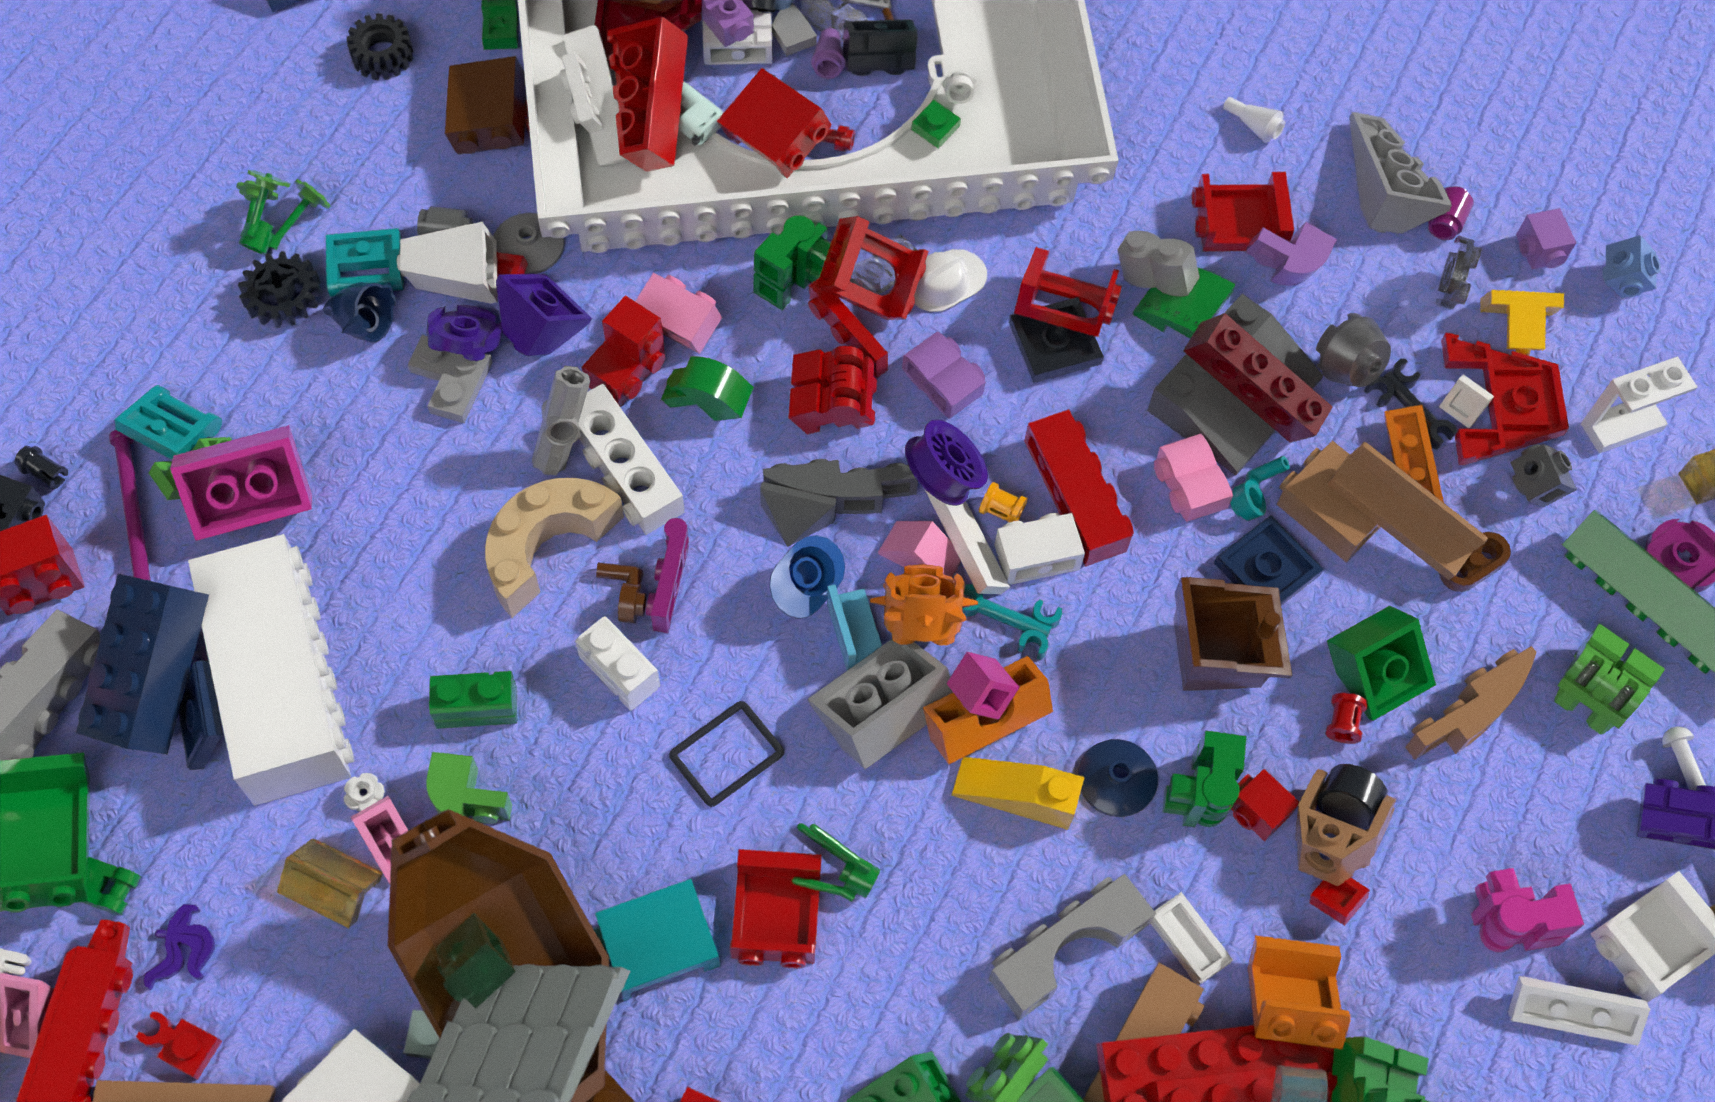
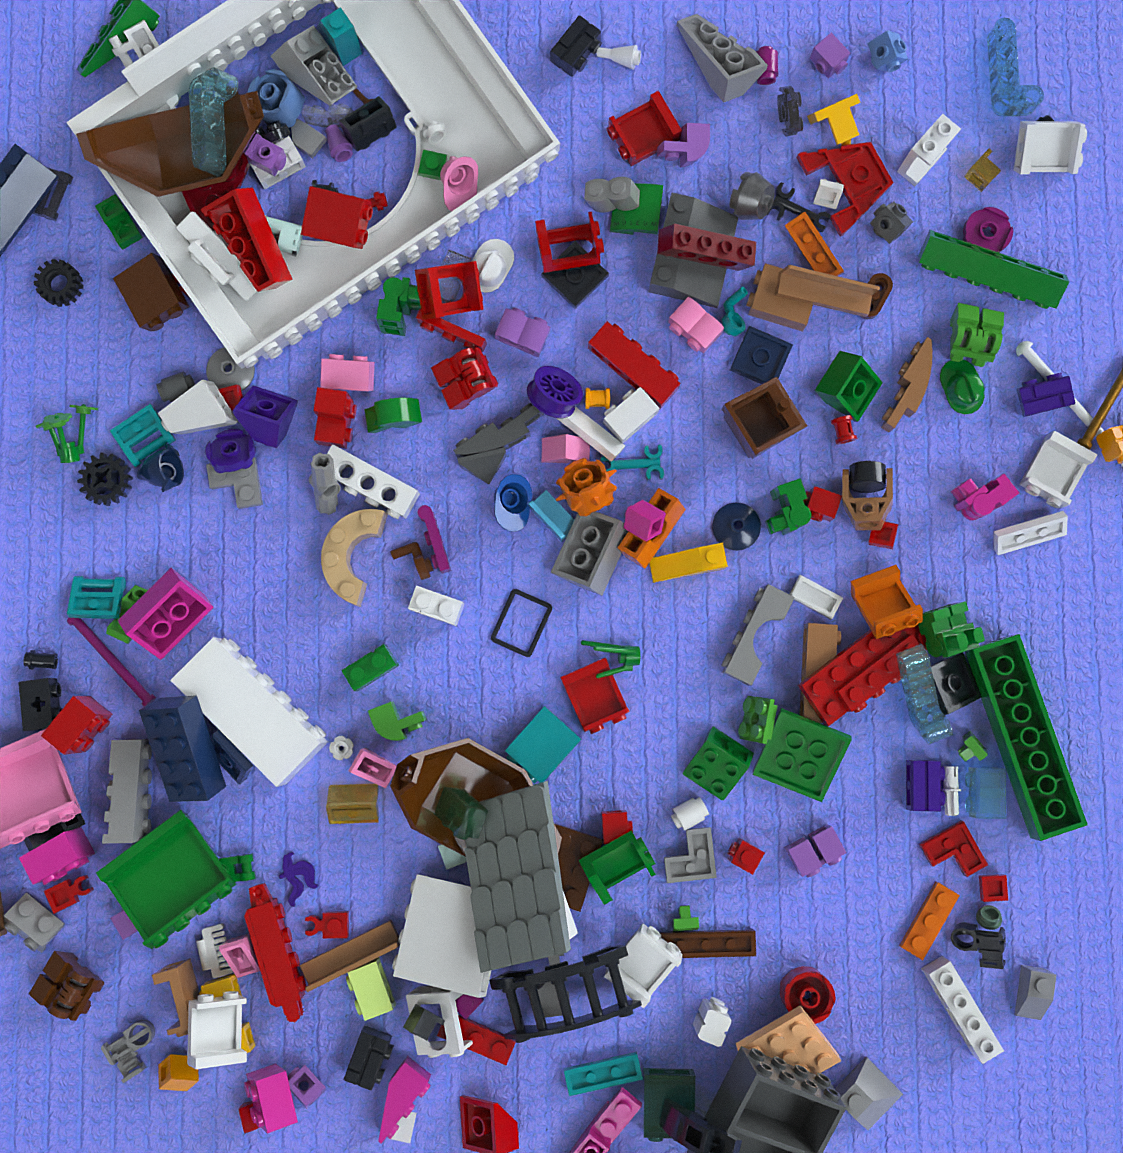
camera: 25 degrees left, 20 degrees up
(961, 146) = (459, 181): none -> bright pink piece
(1200, 81) = (575, 46): none -> black brick
(1557, 749) = (962, 386): none -> green piece

